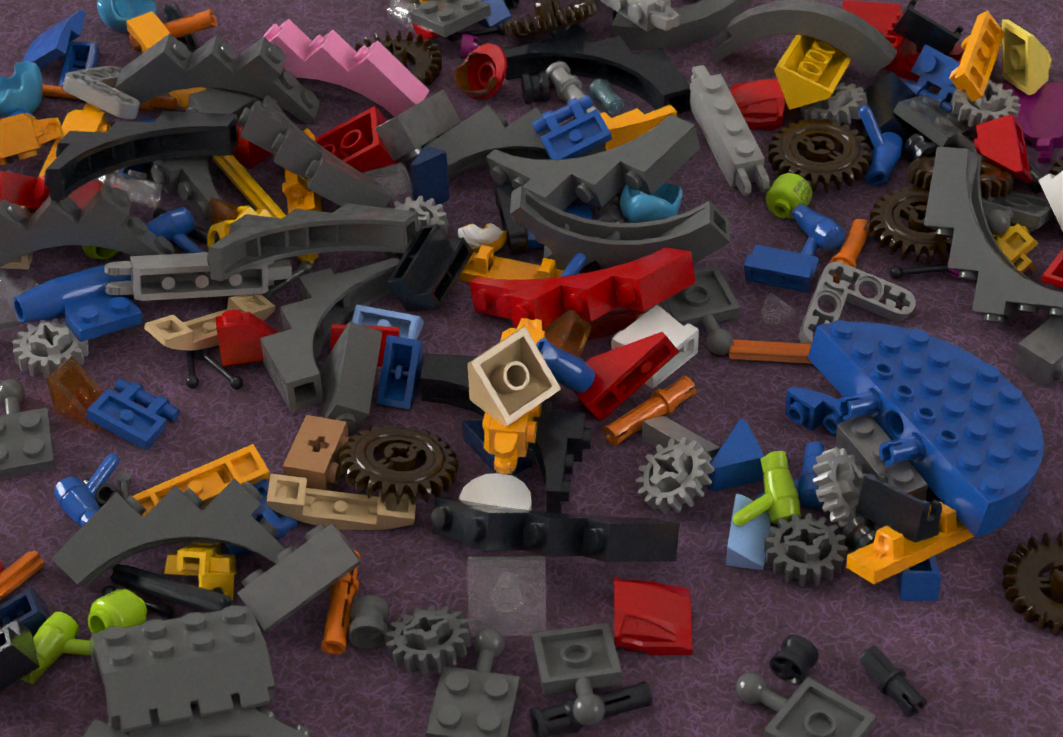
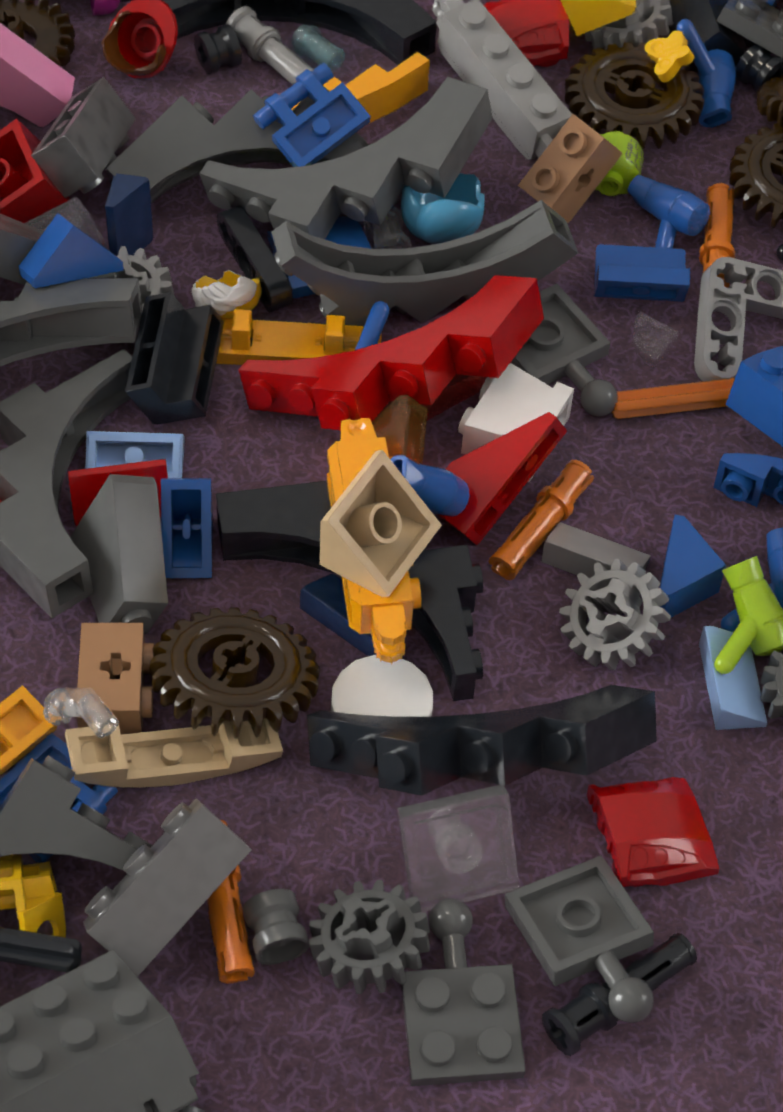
camera: 20 degrees left, 10 degrees up
(285, 459) = (80, 702): none -> clear arm
(376, 190) = (66, 255): none -> blue slope
(749, 191) = (570, 168): none -> medium nougat brick
(848, 128) = (669, 54): none -> yellow piece

